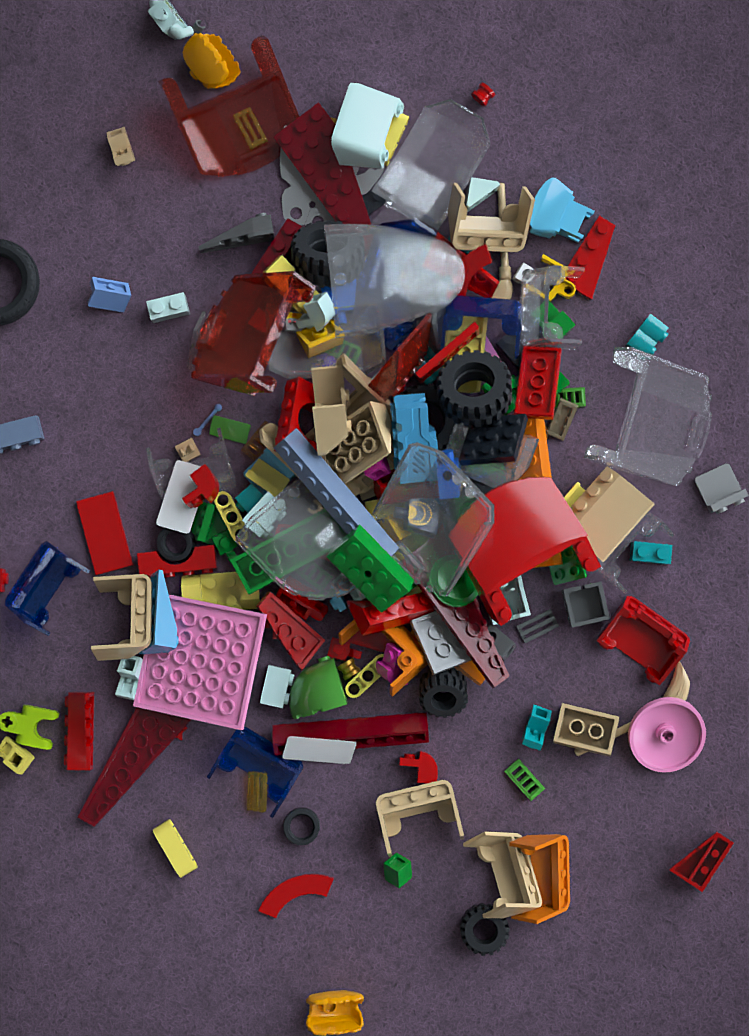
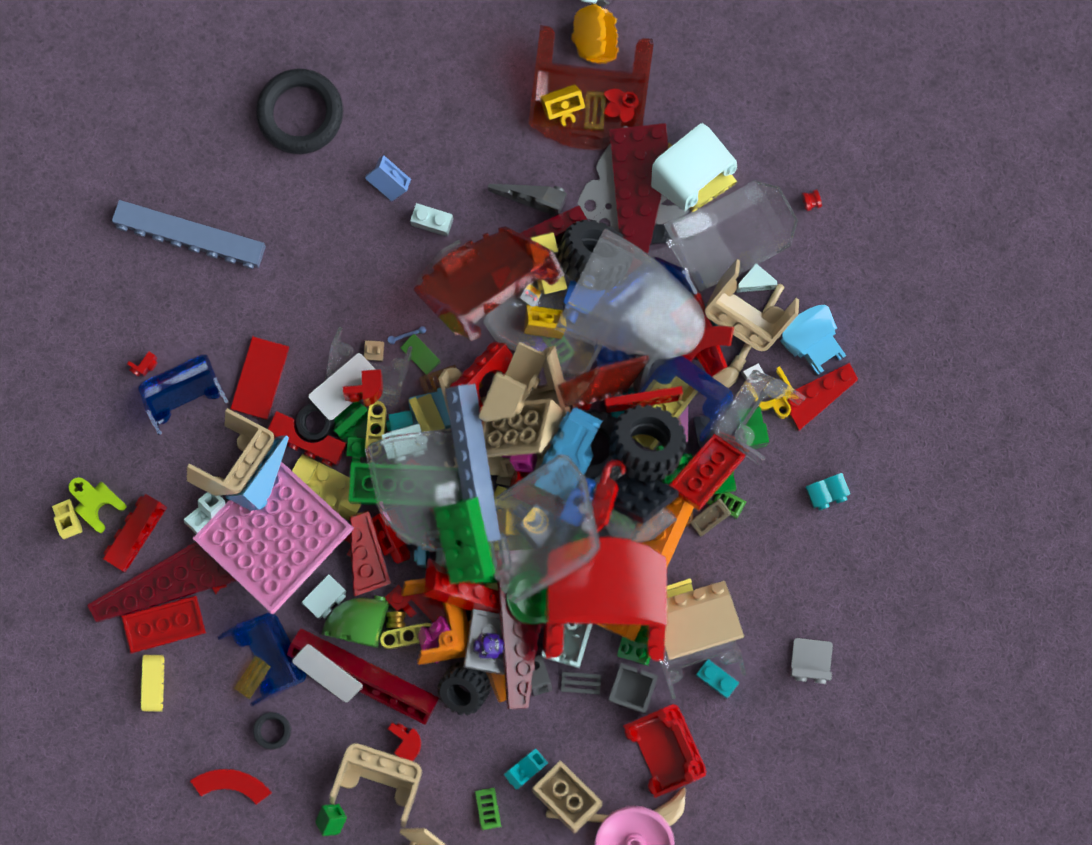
camera: 30 degrees right, 5 degrees down
(120, 146) = (475, 61): tan brick -> none
(153, 793) = (163, 624): none -> red tile
(219, 138) = (562, 103): none -> yellow brick
(267, 111) = (618, 104): none -> red plate
(318, 313) = (554, 299): light aqua brick -> none
(443, 644) = (488, 646): none -> dark purple head
(467, 454) = (605, 495): none -> red plate
(663, 420) = (797, 573): clear windscreen -> none

